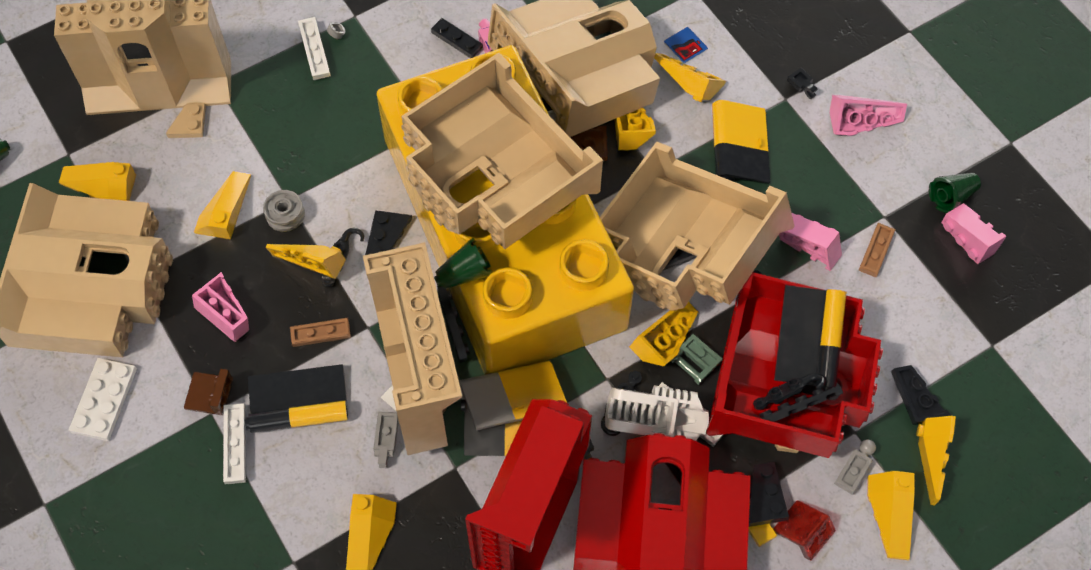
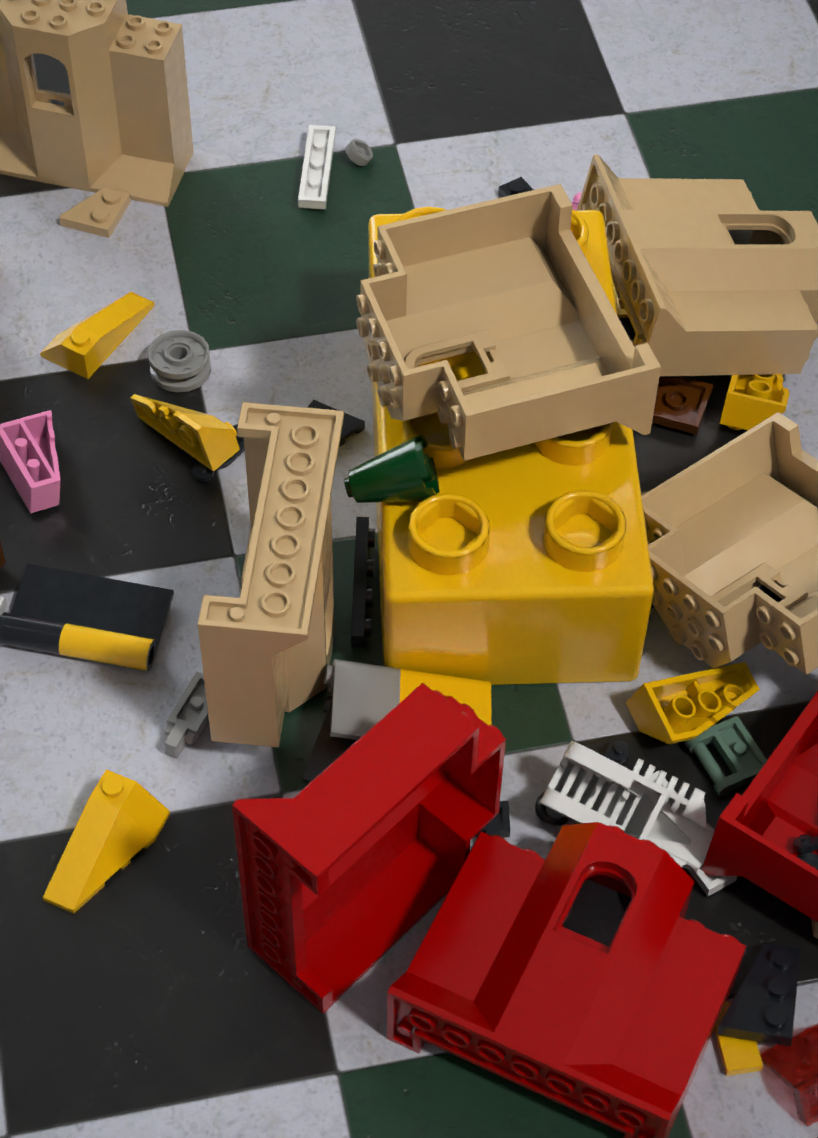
camera: 20 degrees right, 10 degrees down
(320, 332) = (161, 539): medium nougat tile -> none

